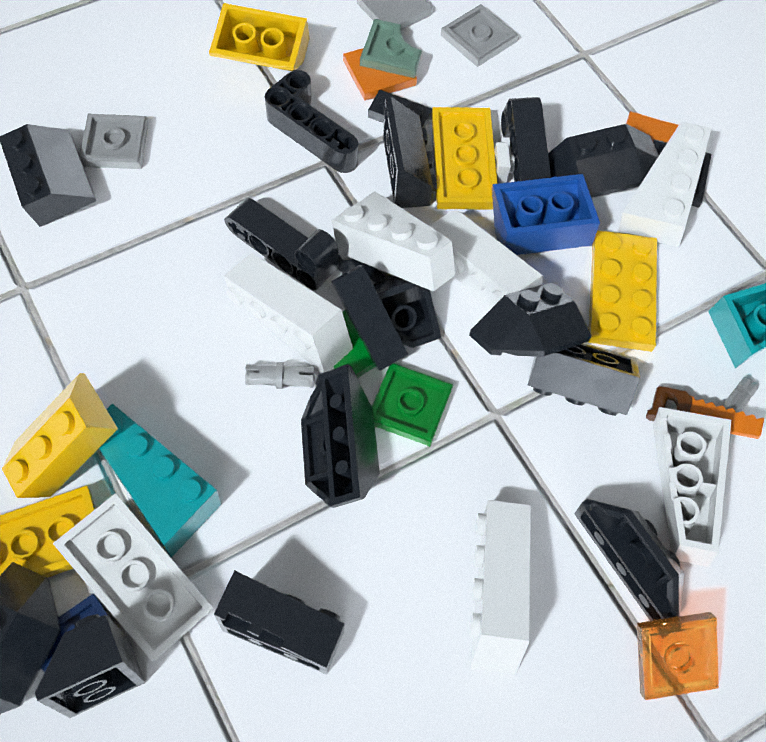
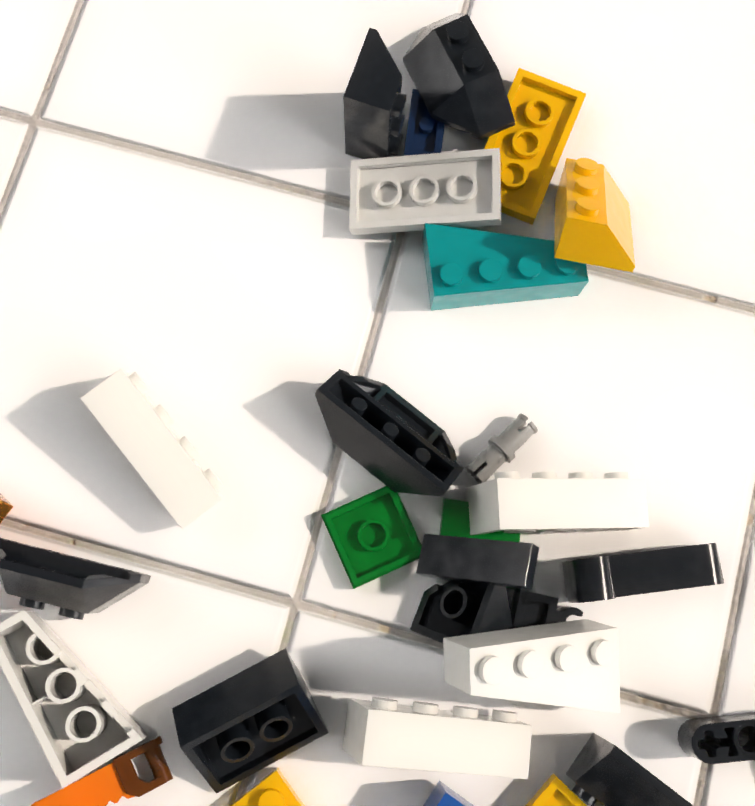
camera: 135 degrees right, 15 degrees up
(279, 623) = (291, 260): black wedge -> none
(532, 323) = (323, 708): black wedge -> none

